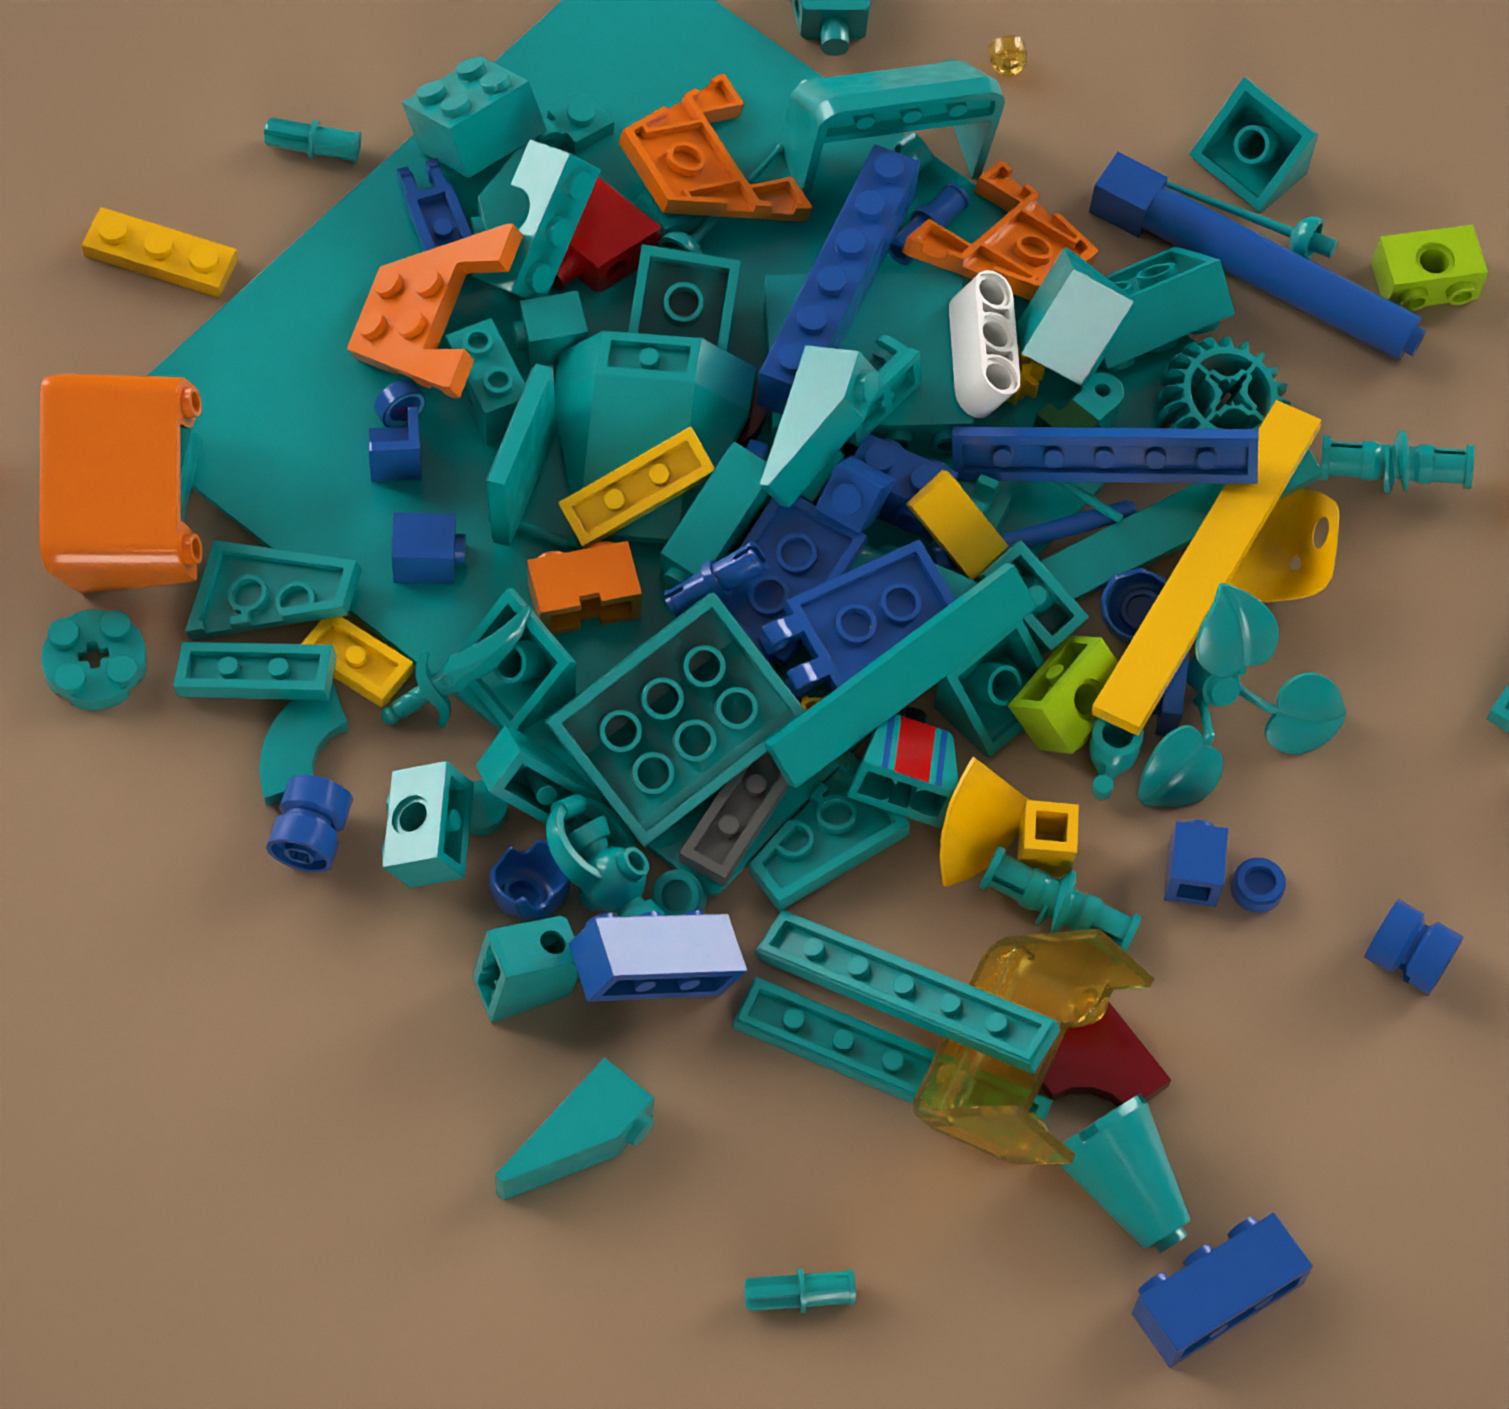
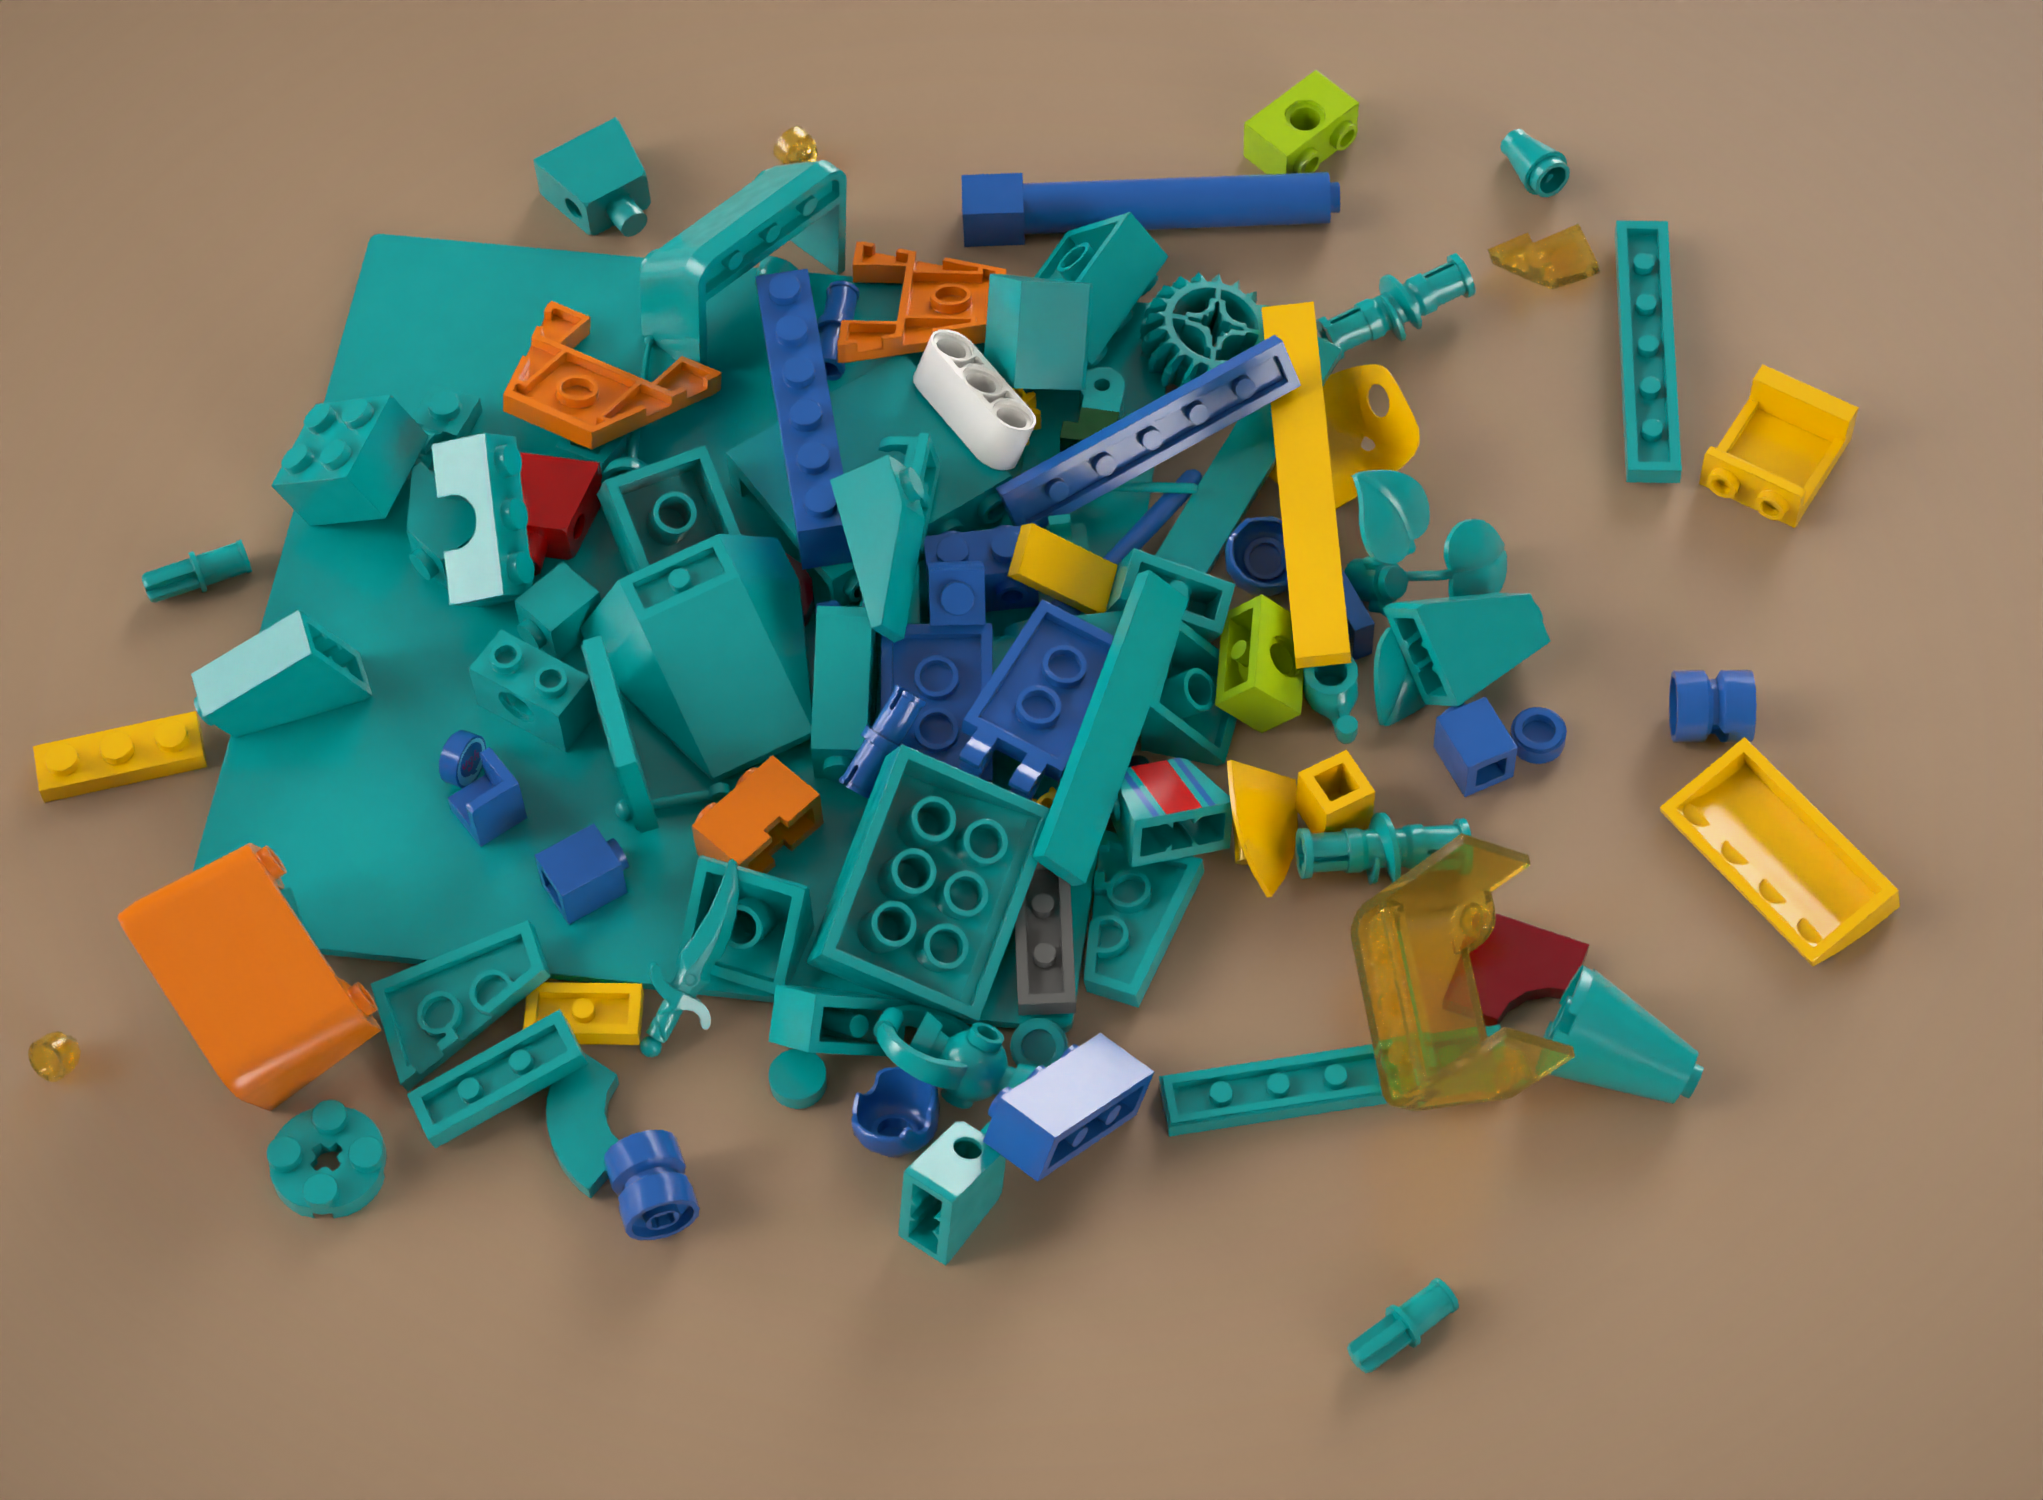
camera: 25 degrees left, 5 degrees down
(305, 259) = (279, 678): none -> teal slope
(414, 303) = (413, 660): orange wing -> none
(428, 824) = (790, 1133): teal brick -> none
(433, 210) = (379, 577): blue hinge -> none
(583, 1131) = (1108, 1305): teal slope -> none
(637, 487) = (749, 702): yellow plate -> none
(908, 991) = (1312, 1001): teal tile -> none
(1220, 1287) = (1762, 1095): blue brick -> none
(1246, 772) = (1465, 641): none -> teal slope
(1256, 146) = (1076, 106): teal slope -> none
(1304, 237) = (1173, 163): teal sword -> none
(1382, 1103) = (1781, 853): none -> yellow slope

